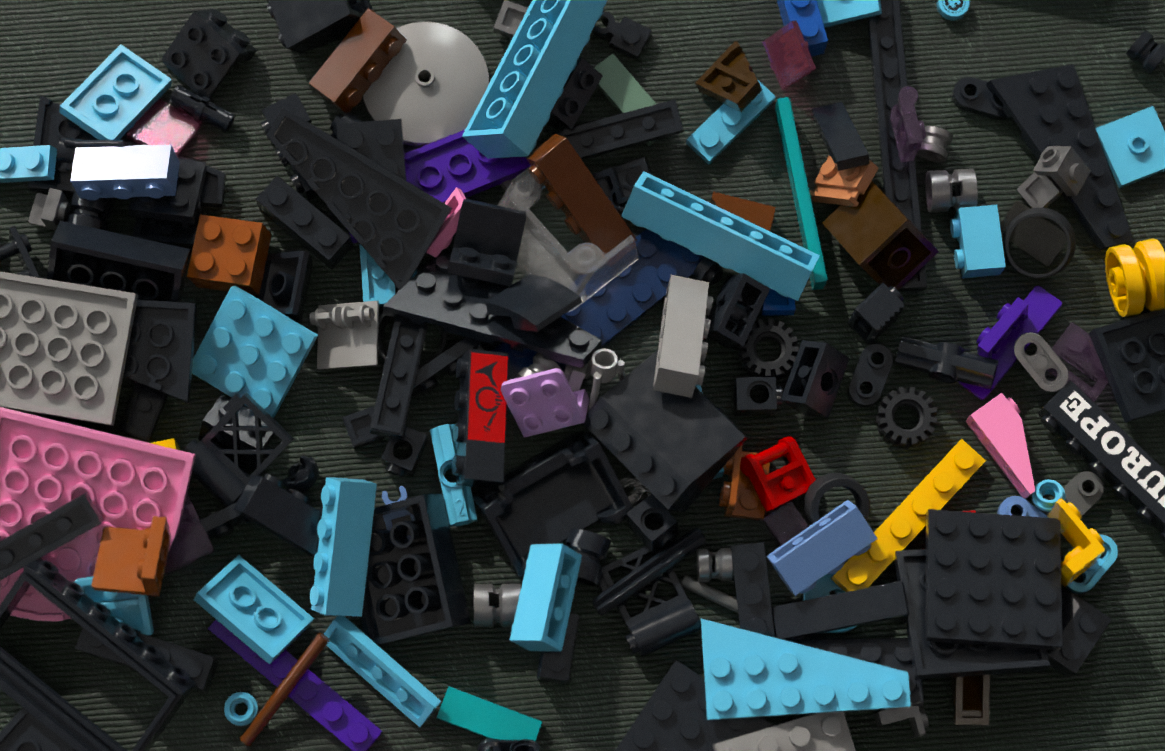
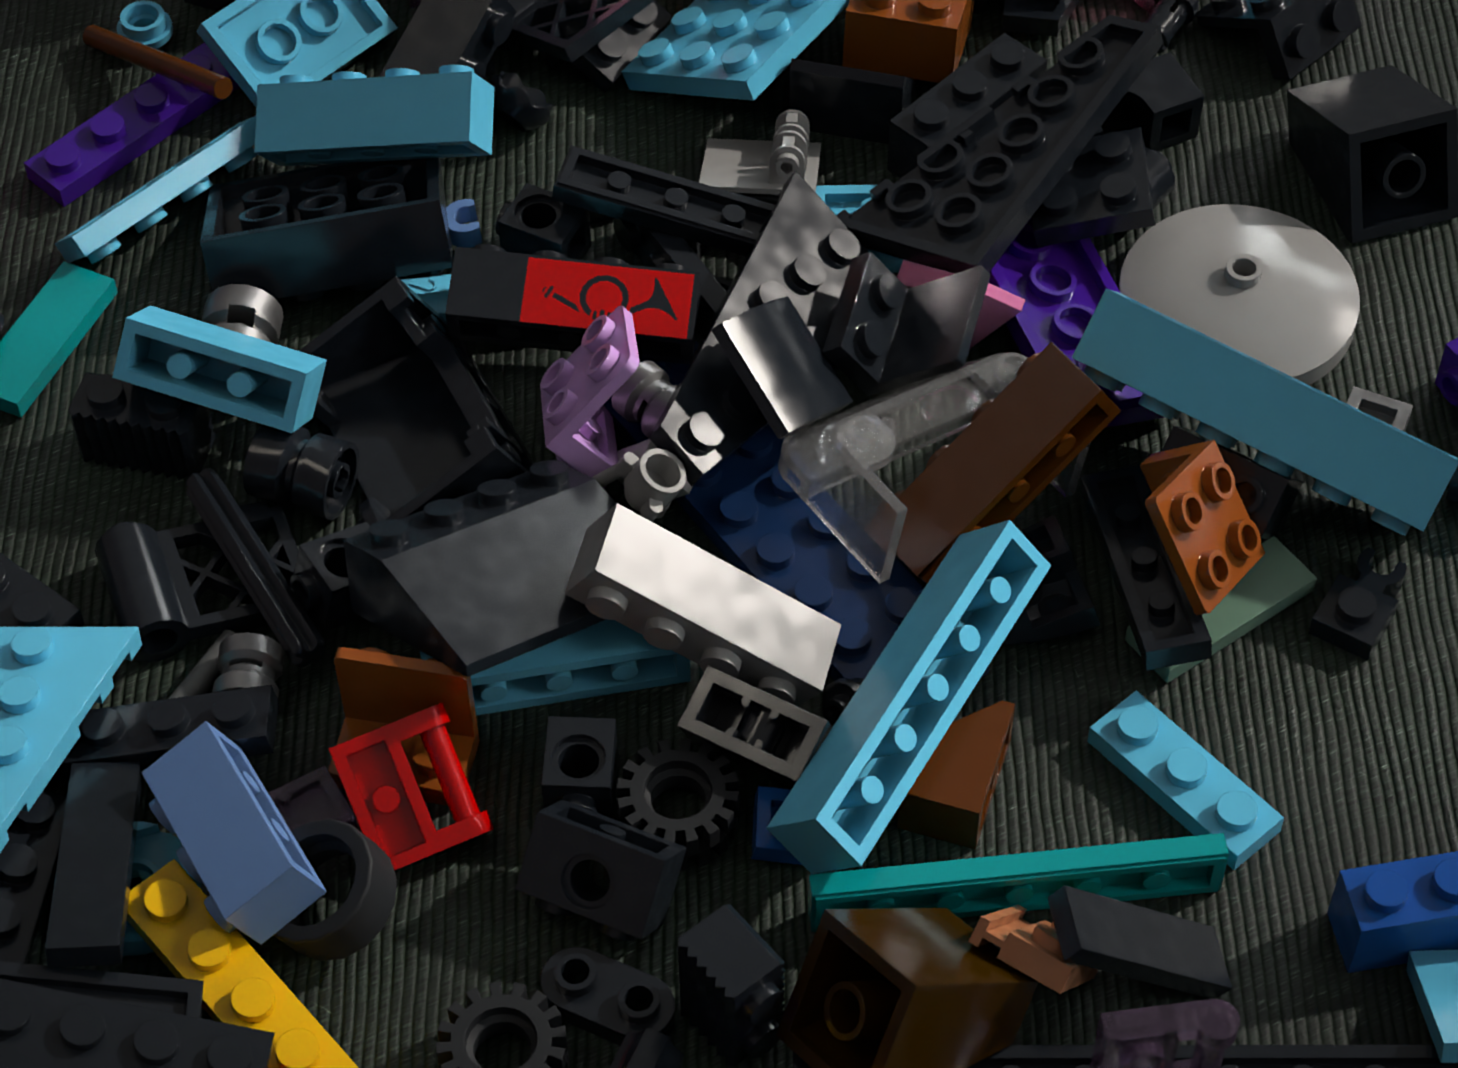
camera: 100 degrees right, 25 degrees down
(358, 61) = (1270, 183): reddish brown brick -> none
(608, 96) = (1201, 521): none -> dark orange bracket
(730, 79) = (1270, 767): dark brown wing -> none
(789, 55) = (1328, 865): clear pink piece -> none

